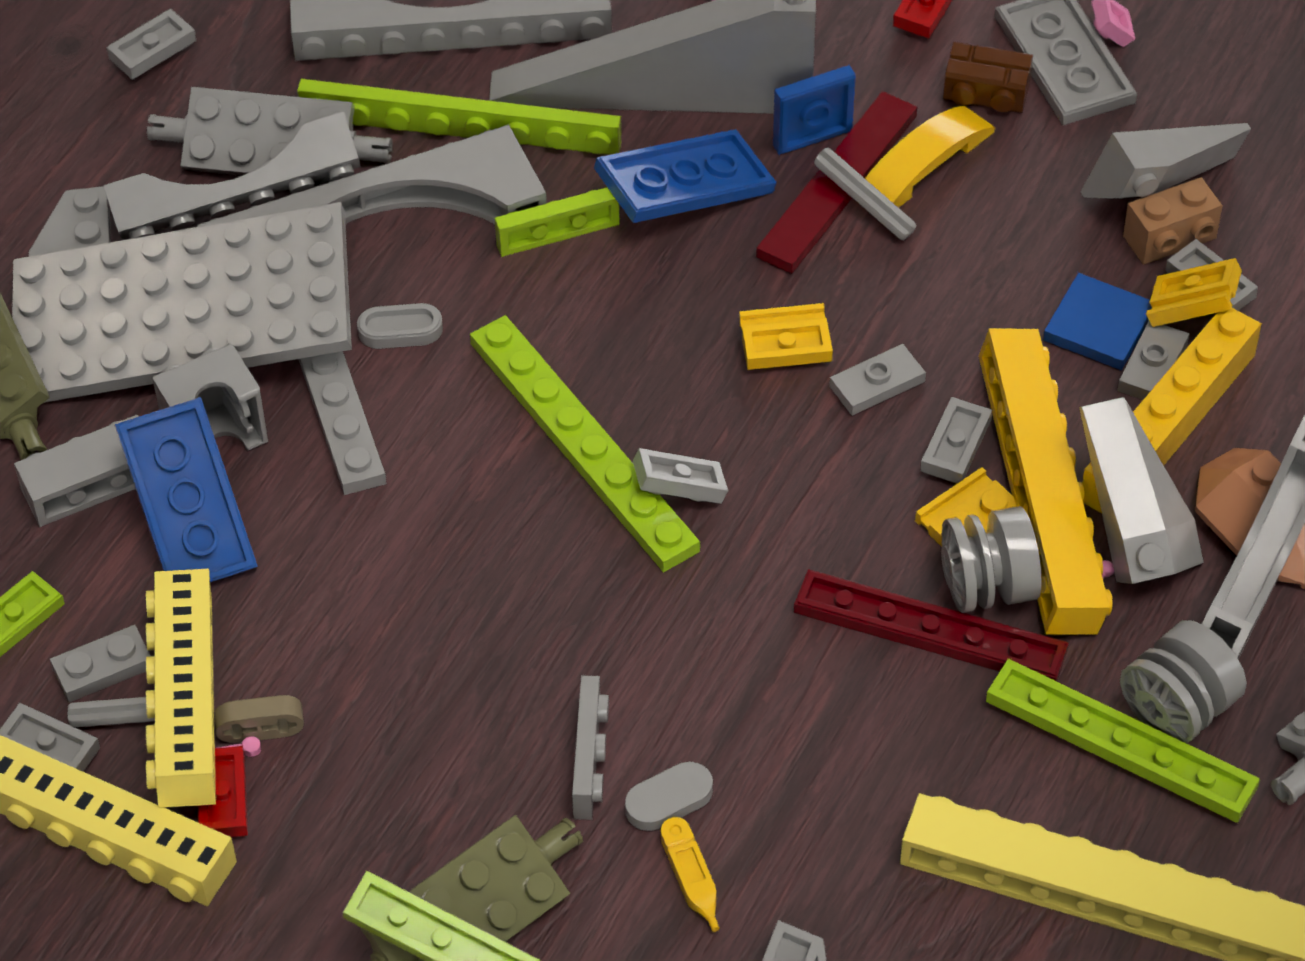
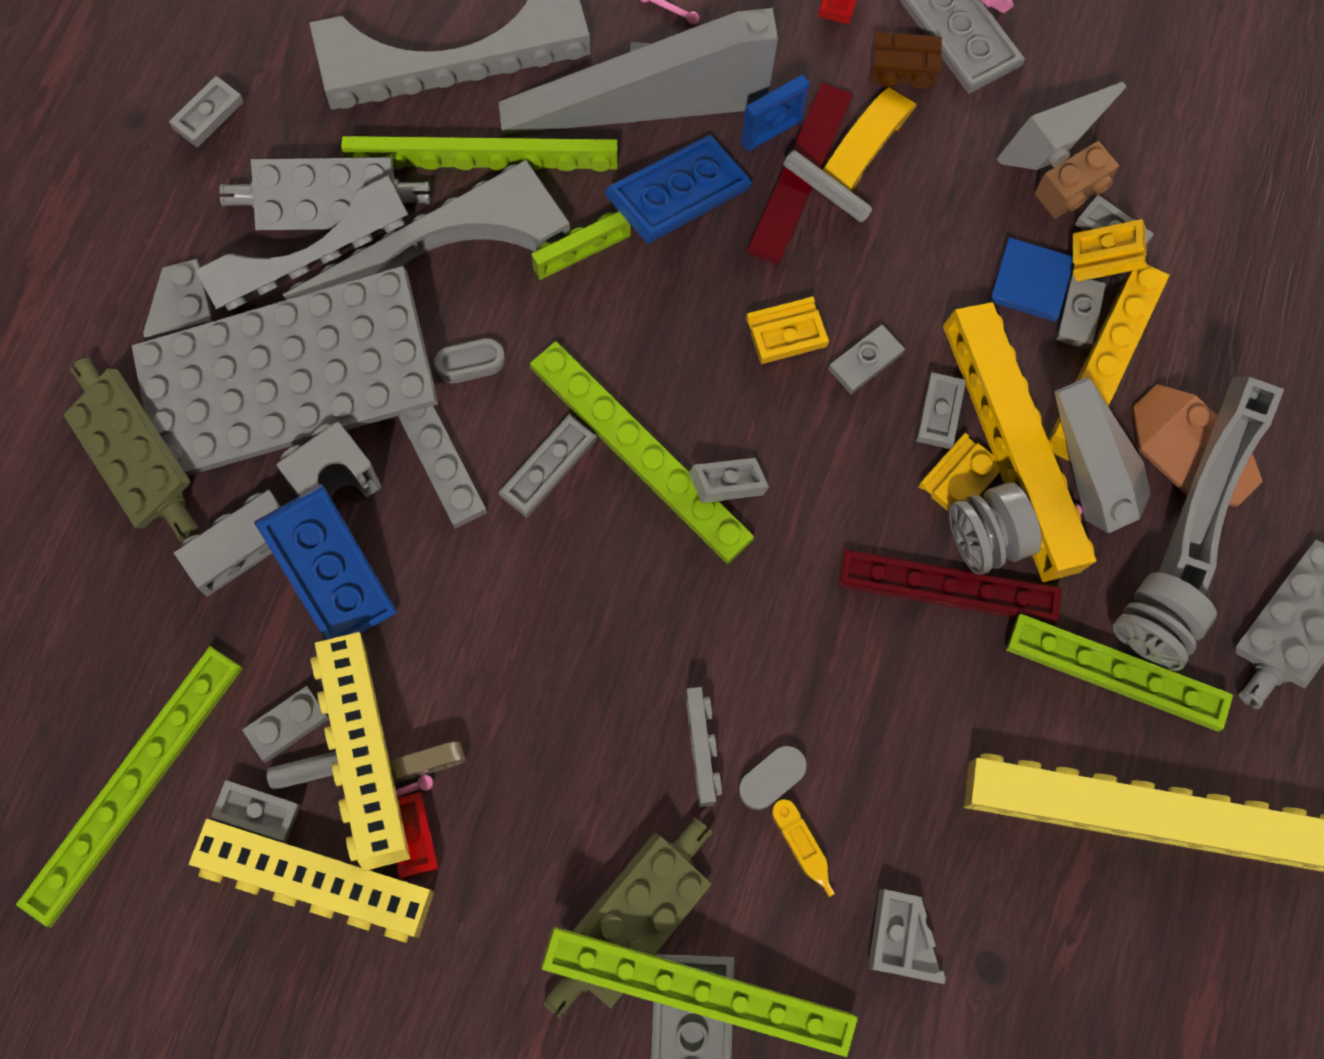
camera: 15 degrees left, 20 degrees up
(468, 442) = (547, 466): none -> light grey tile

